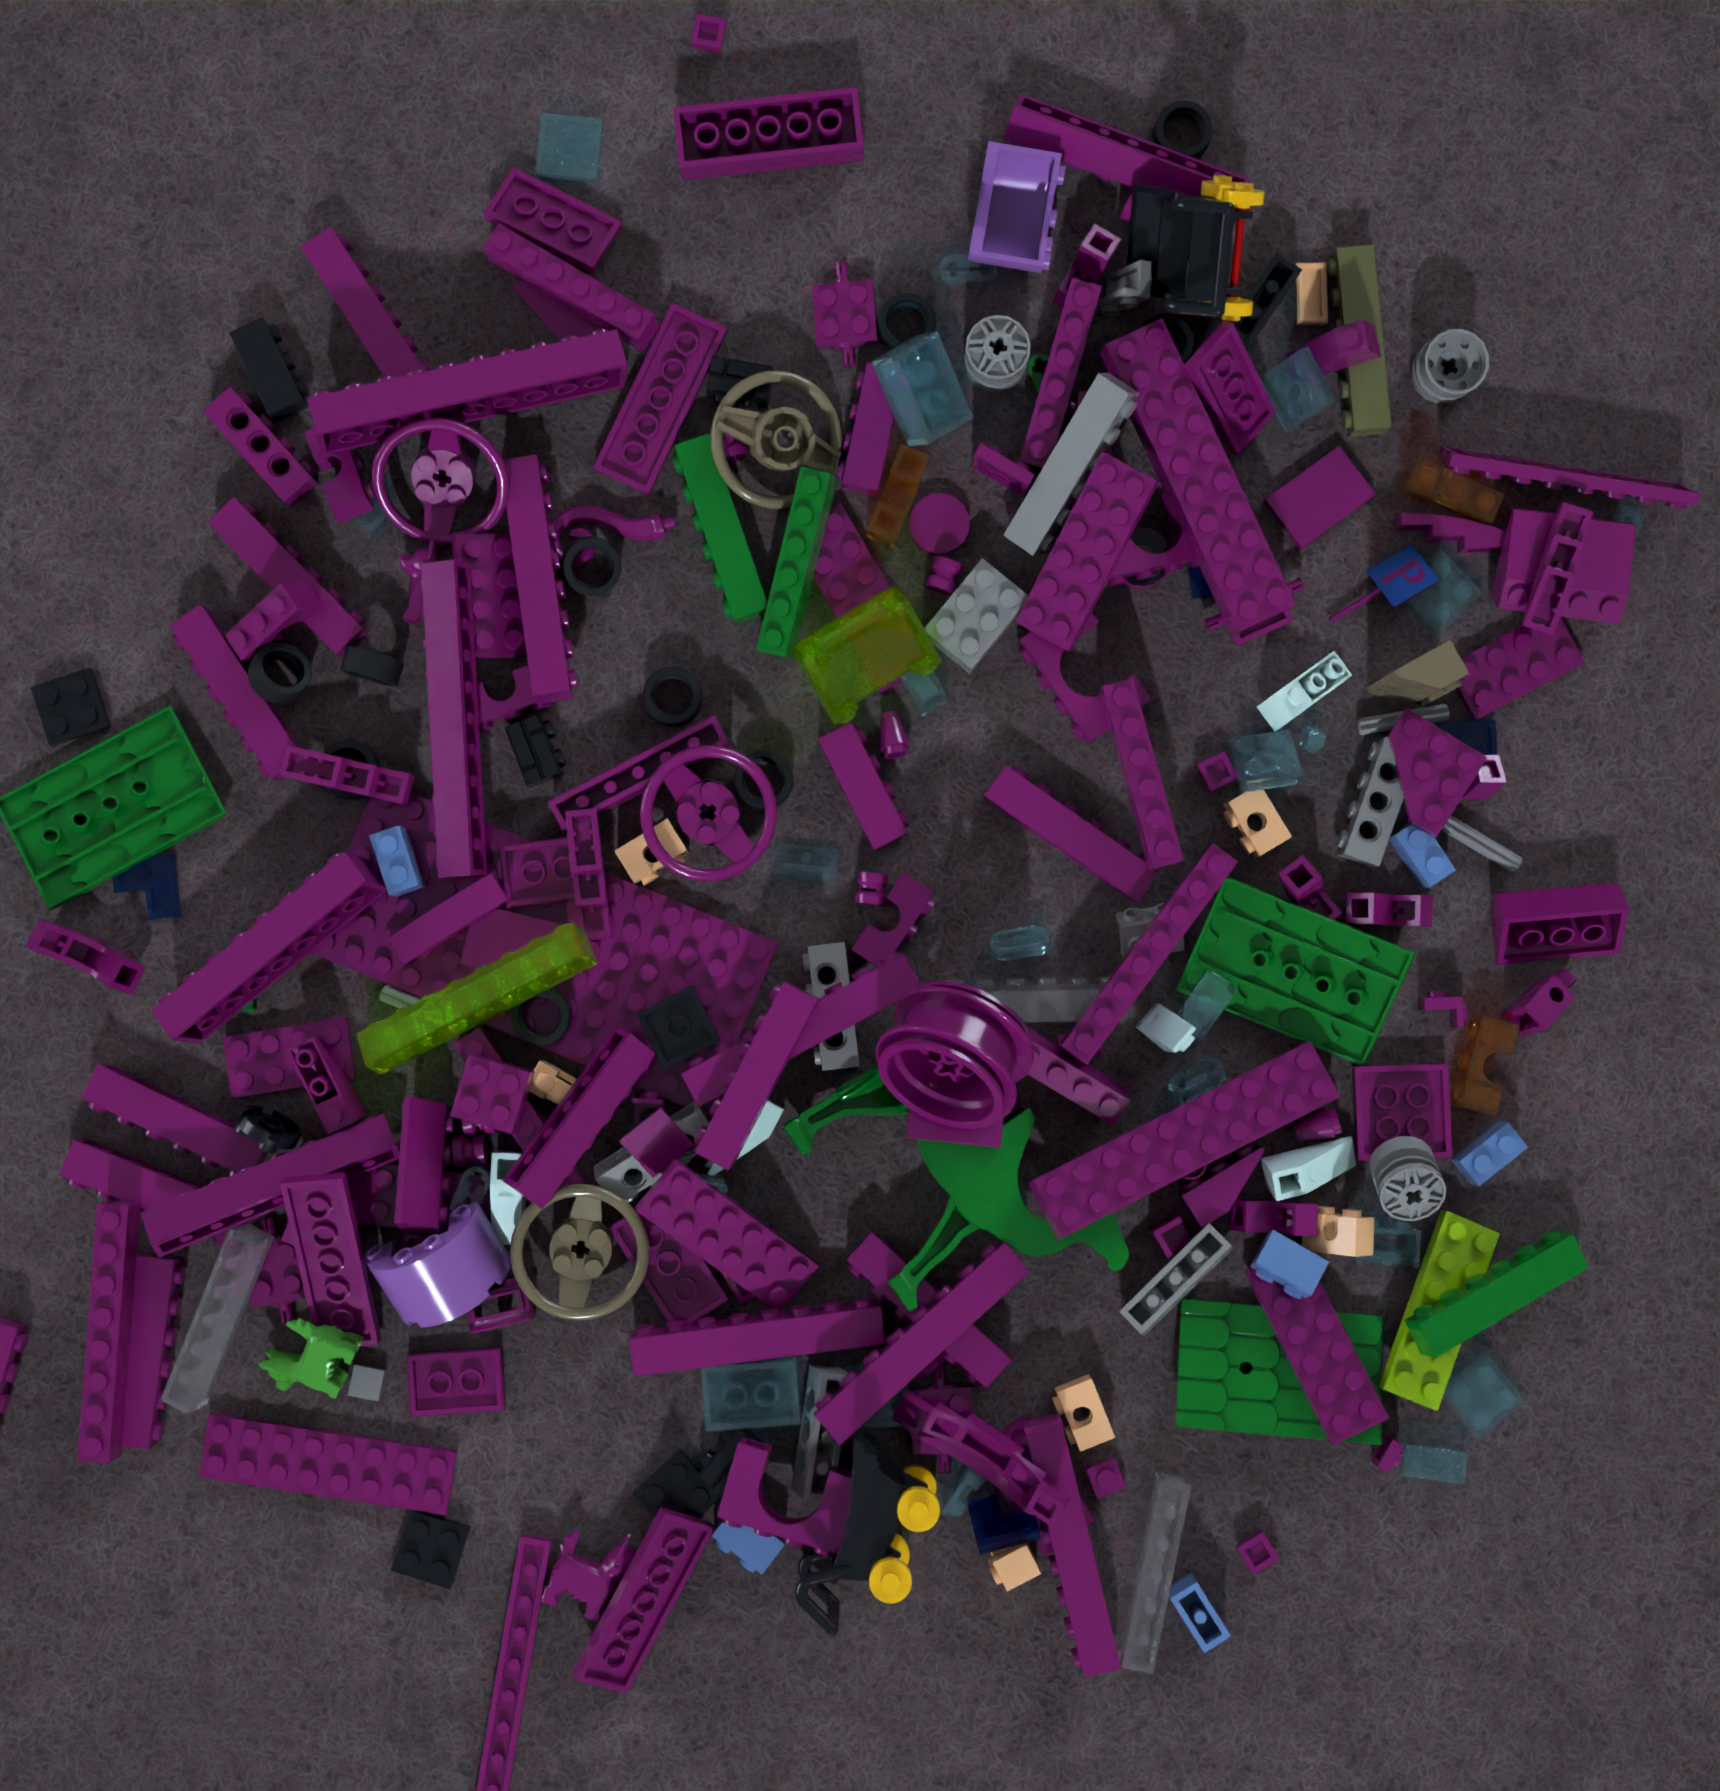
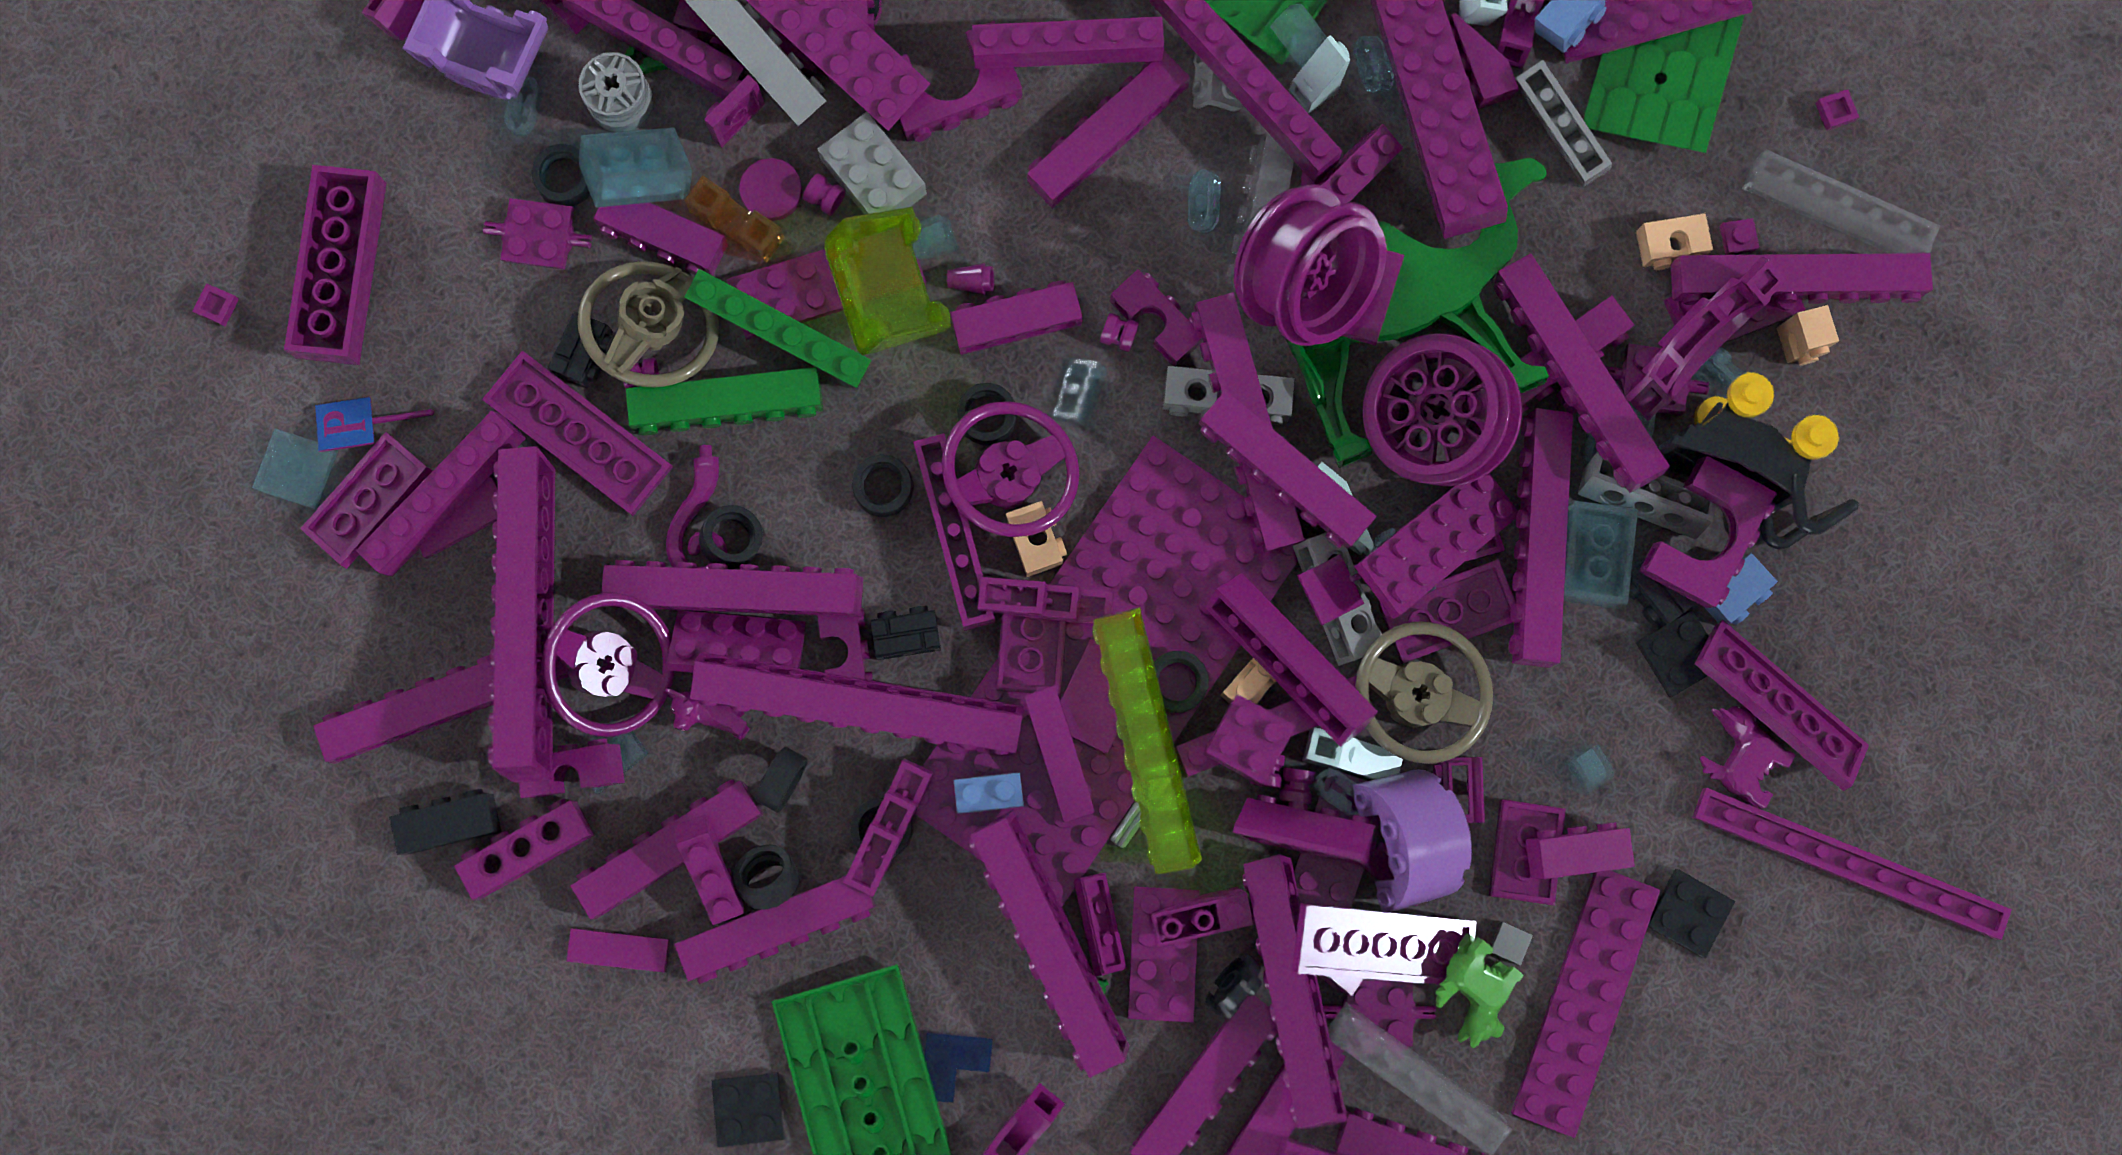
camera: 85 degrees left, 5 degrees down
(189, 555) = (618, 950): none -> magenta tile
(303, 992) = (1100, 924): none -> magenta tile
(462, 1430) = (1579, 851): none -> magenta brick
(547, 1426) = (1590, 768): none -> clear light blue brick
(623, 186) = (351, 423): none -> blue piece
(647, 1099) = (1283, 596): magenta bracket -> none
(678, 1027) = (1218, 546): black plate -> none
(859, 1262) = (1495, 404): none -> magenta wheel
(998, 1531) = (1778, 339): clear blue tile -> none
(1170, 1235) = (1517, 123): magenta panel -> none
(1198, 1613) = (1889, 172): medium blue brick -> none

